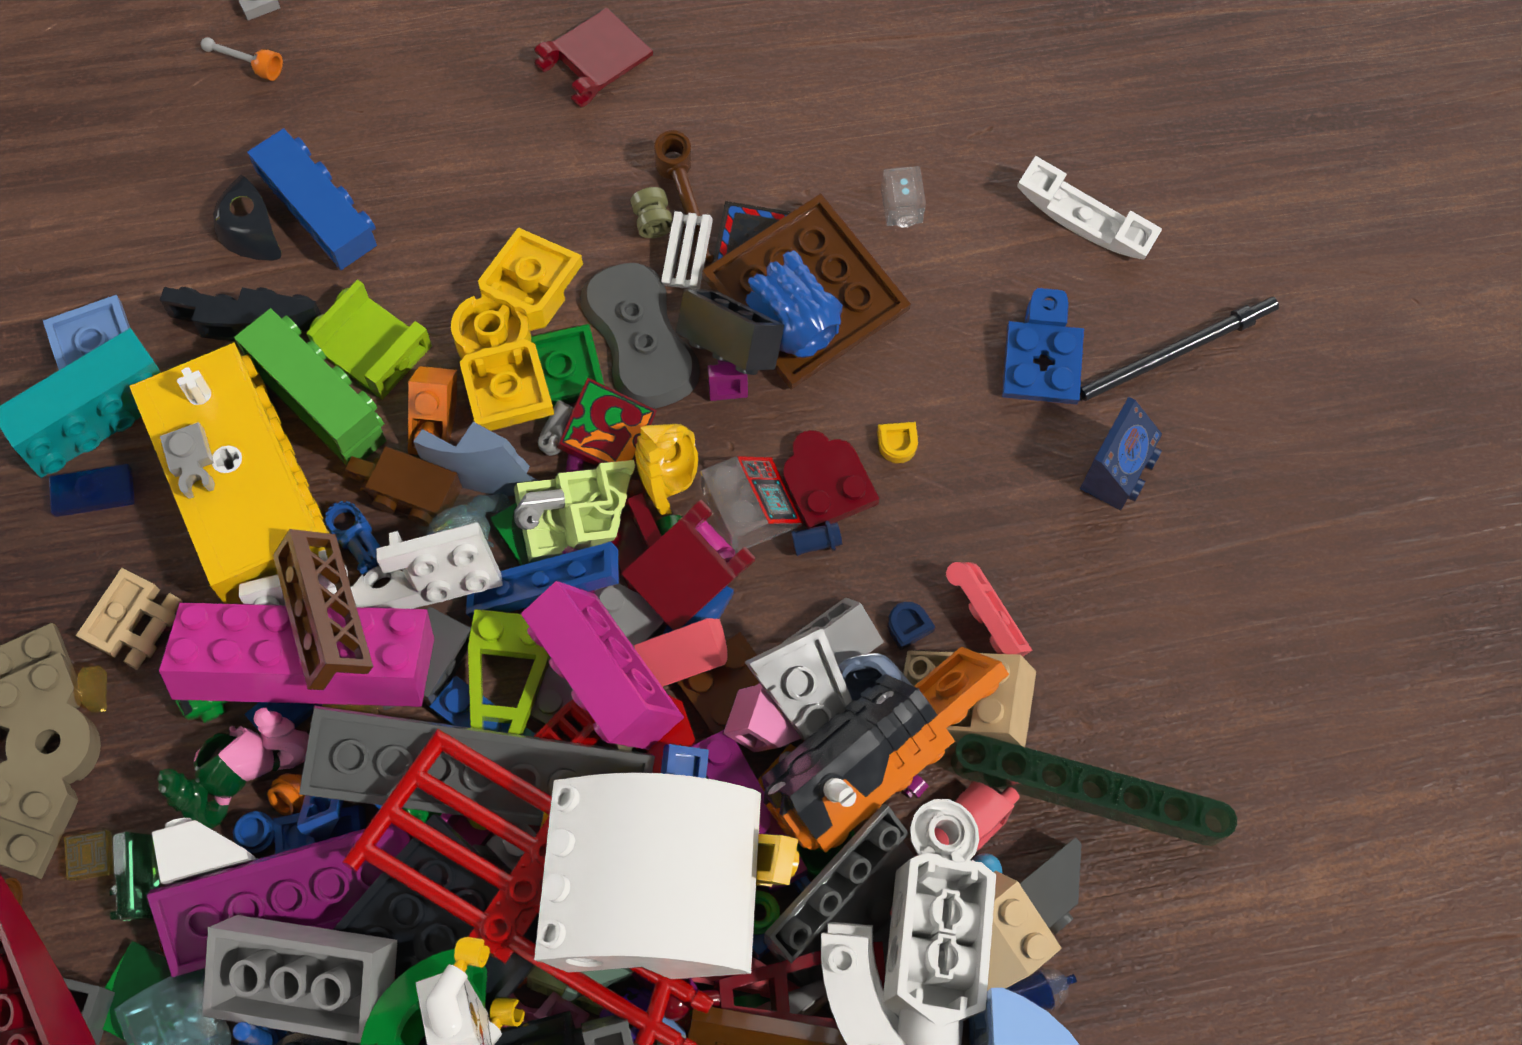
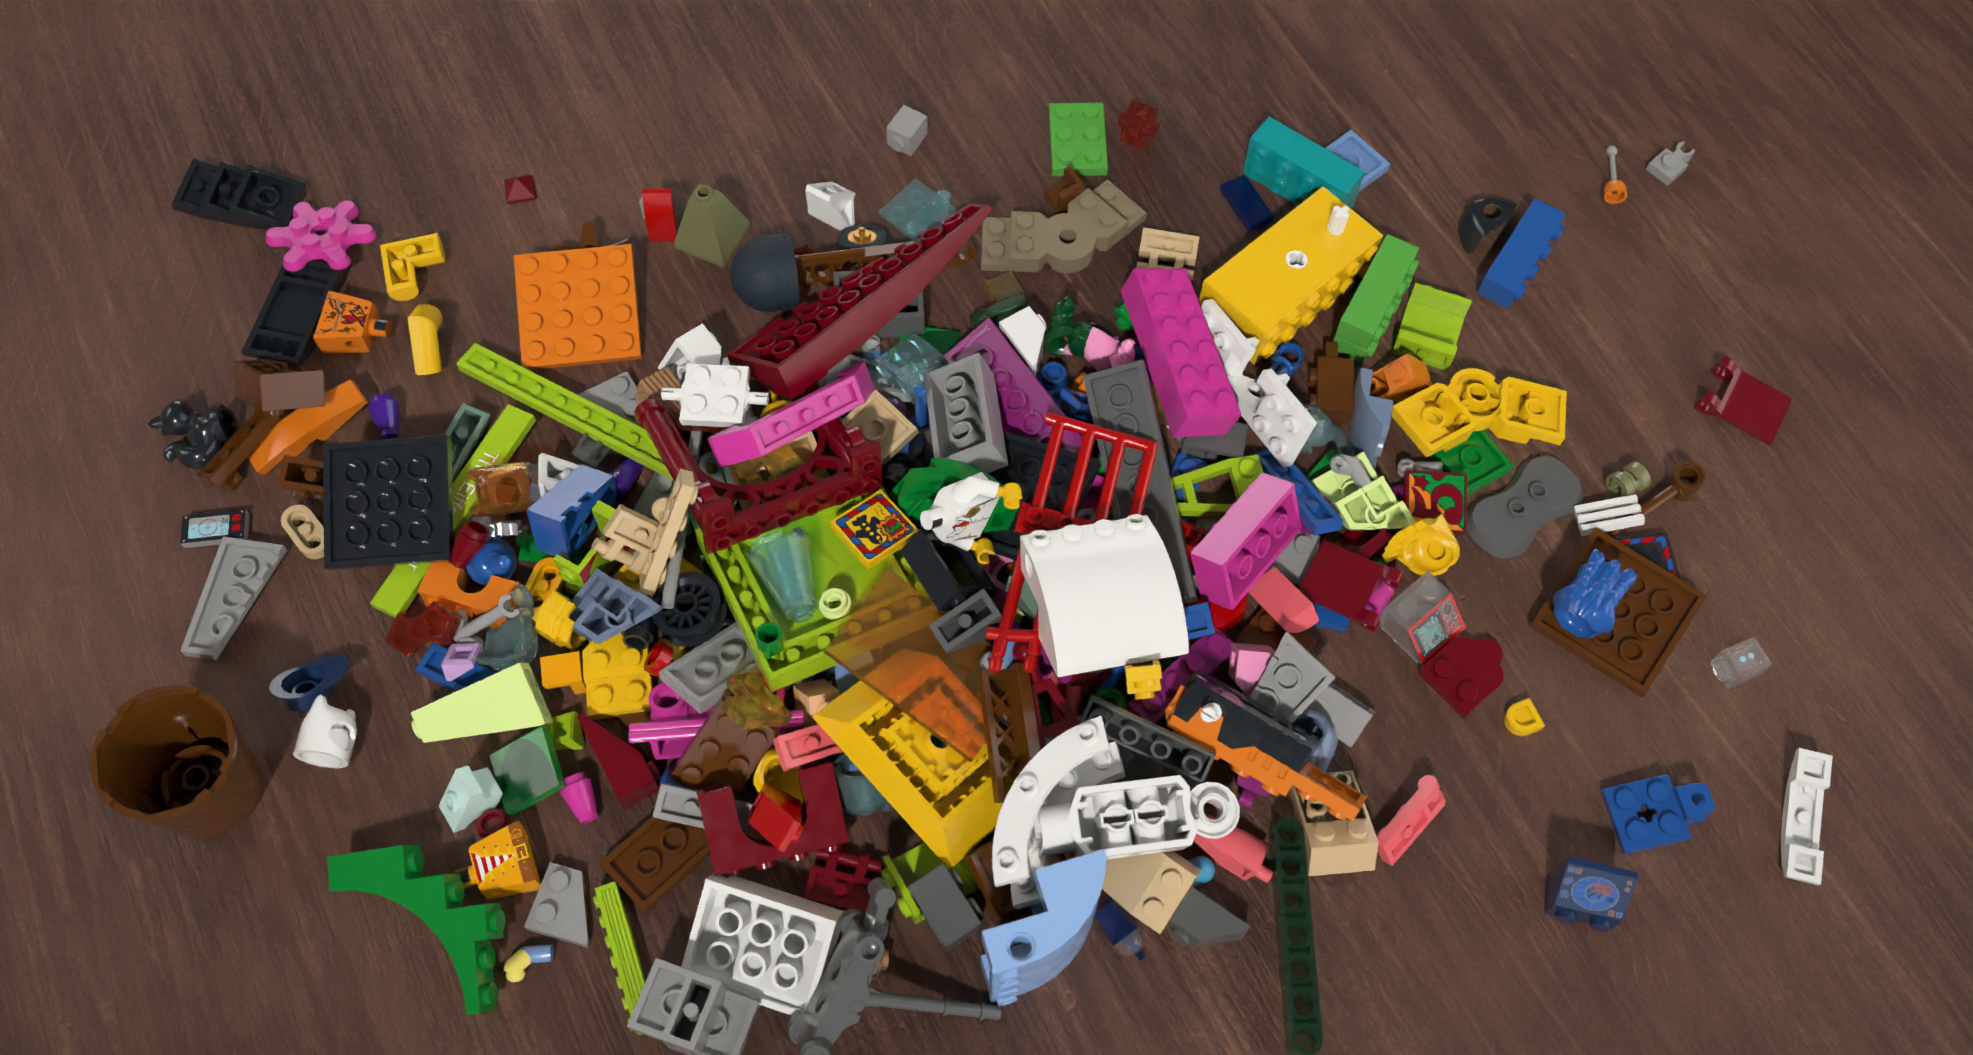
camera: 75 degrees right, 5 degrees down
(93, 688) = (1113, 250): clear yellow tile -> none
(186, 455) = (1287, 233): light grey plate -> none
(225, 317) = (1405, 227): black slope -> none
(308, 606) = (1208, 336): reddish brown fence -> none
(726, 382) = (1514, 574): magenta tile -> none
(729, 330) = (1551, 556): black brick -> none
(817, 538) = (1414, 677): dark blue pin -> none
(909, 624) = (1374, 765): dark blue tile -> none
(1239, 319) = (1769, 976): black bar -> none

